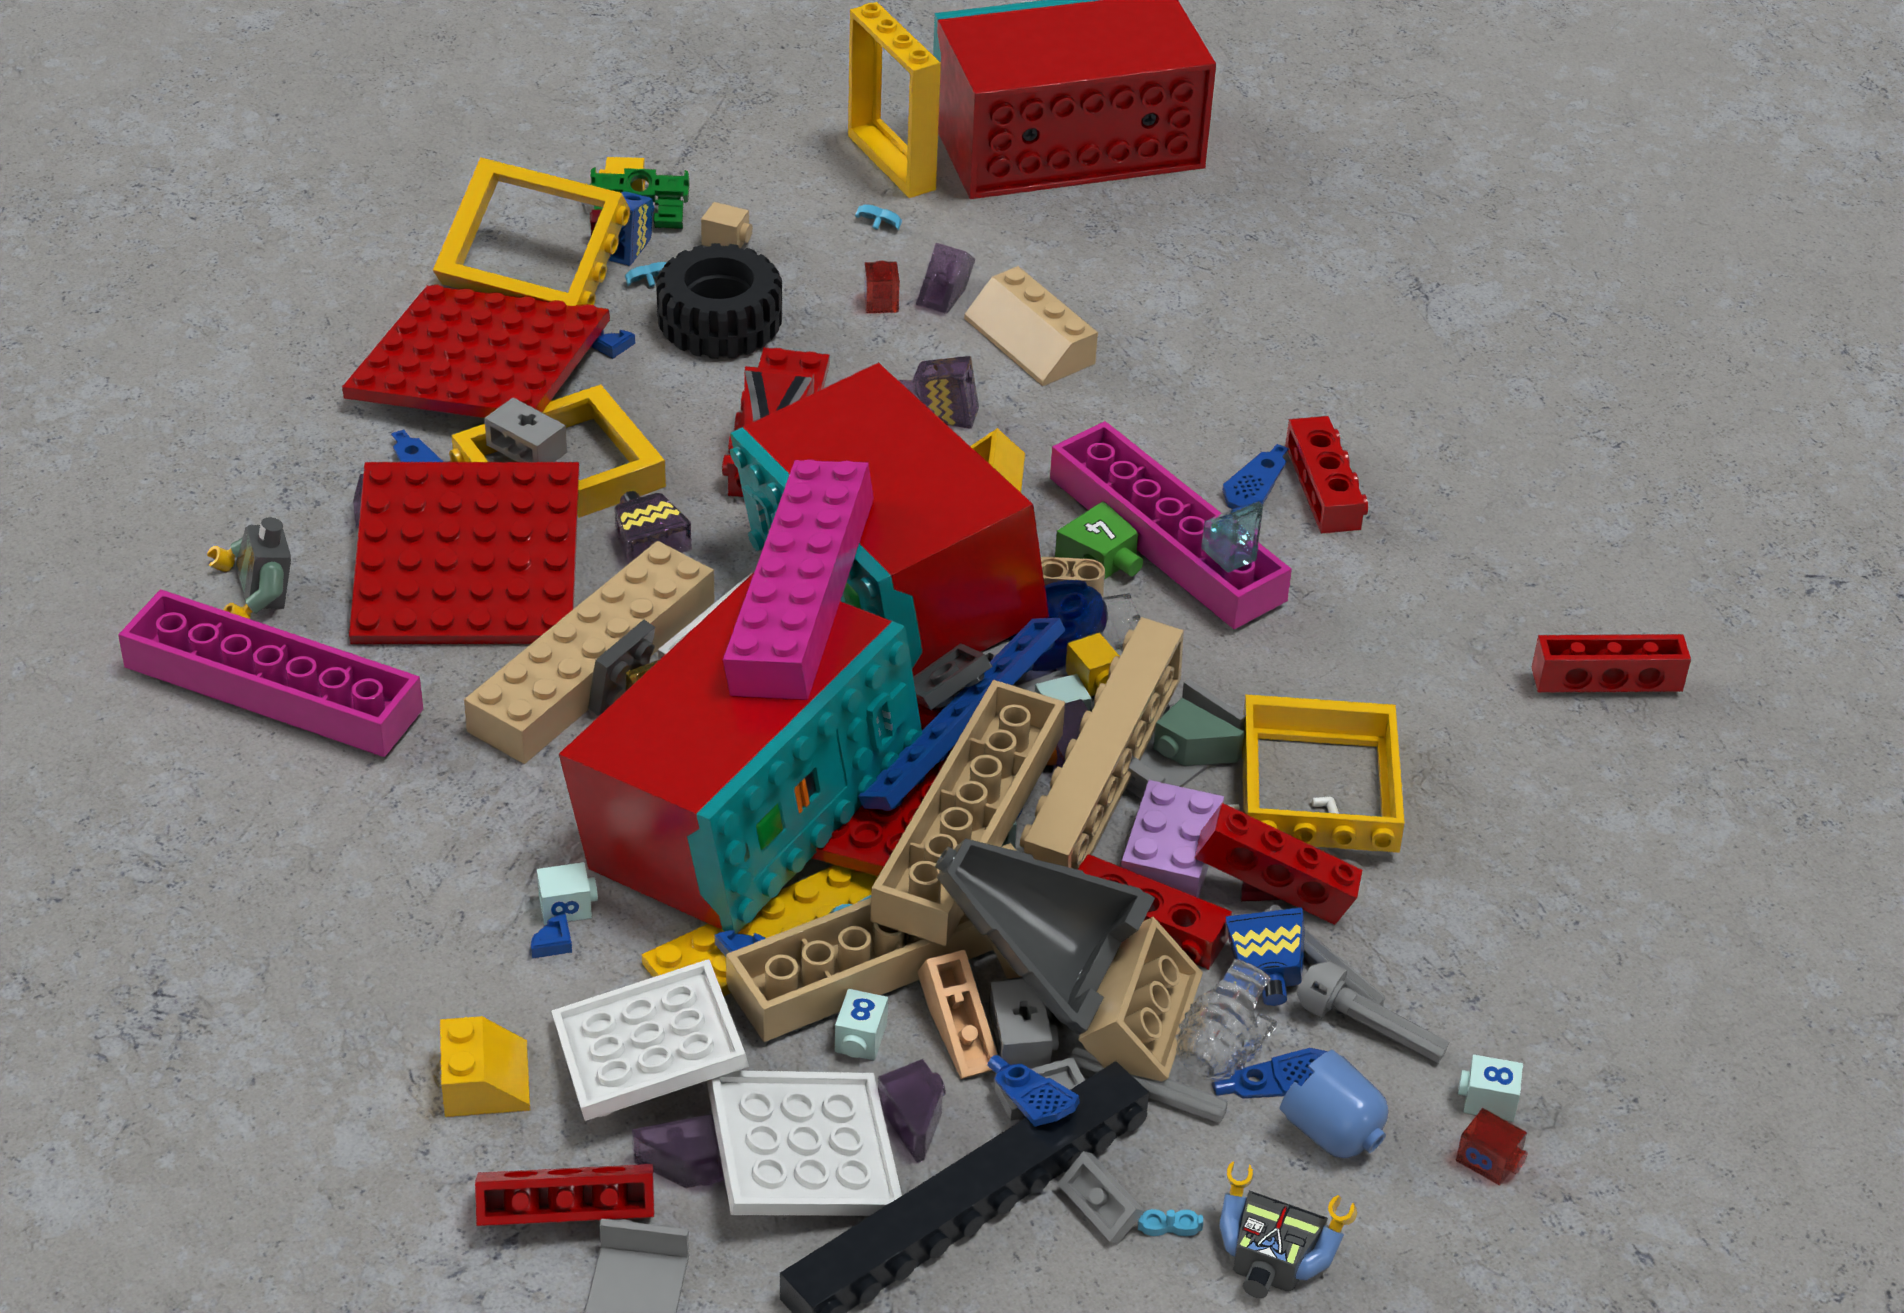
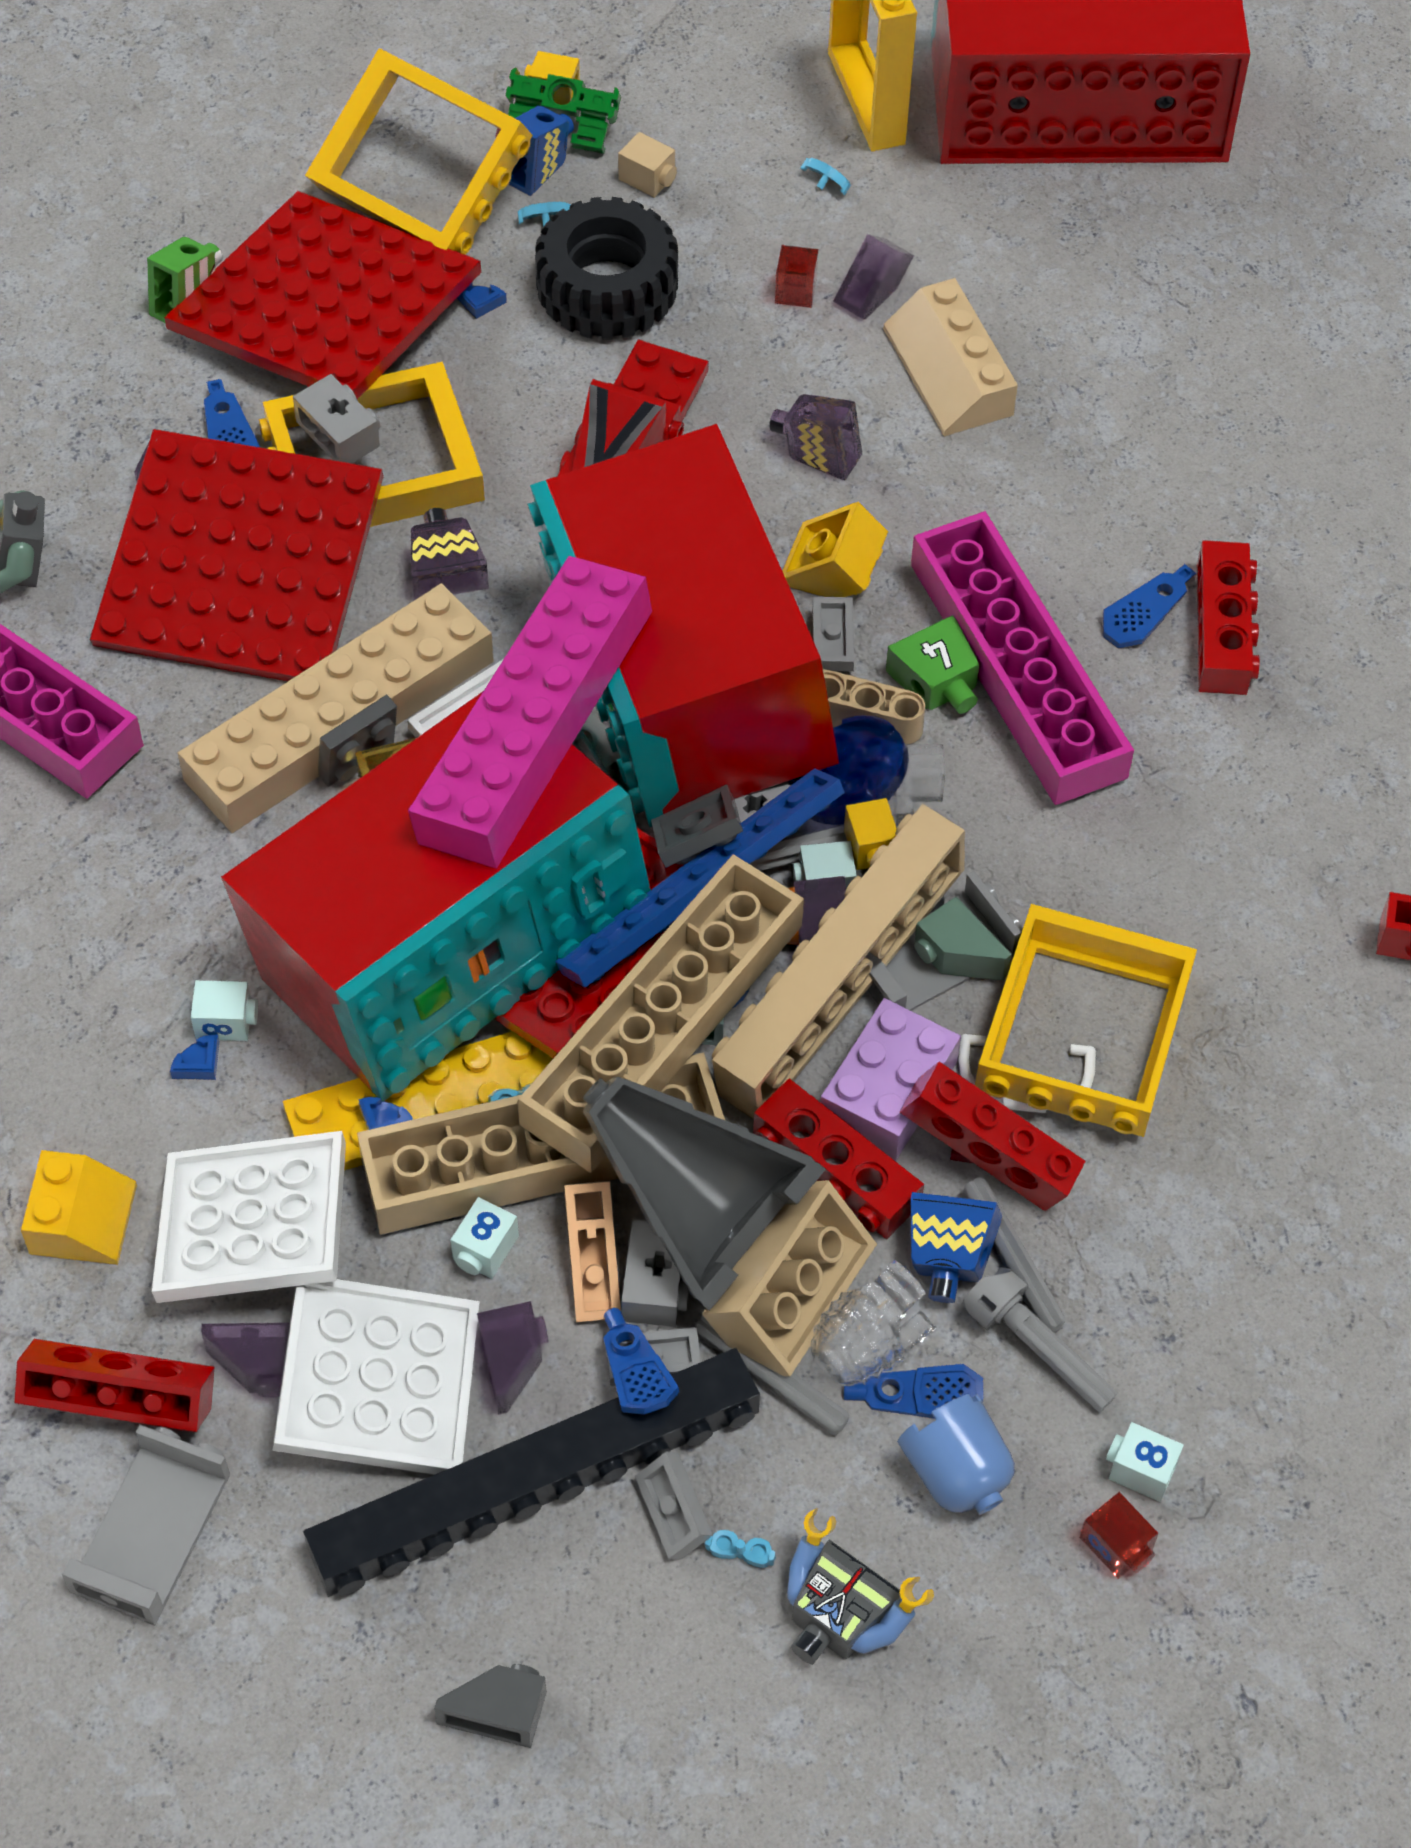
camera: 15 degrees right, 15 degrees up
(342, 354) = (177, 272): none -> bright green torso
(1233, 536) = (1073, 702): clear light blue slope -> none

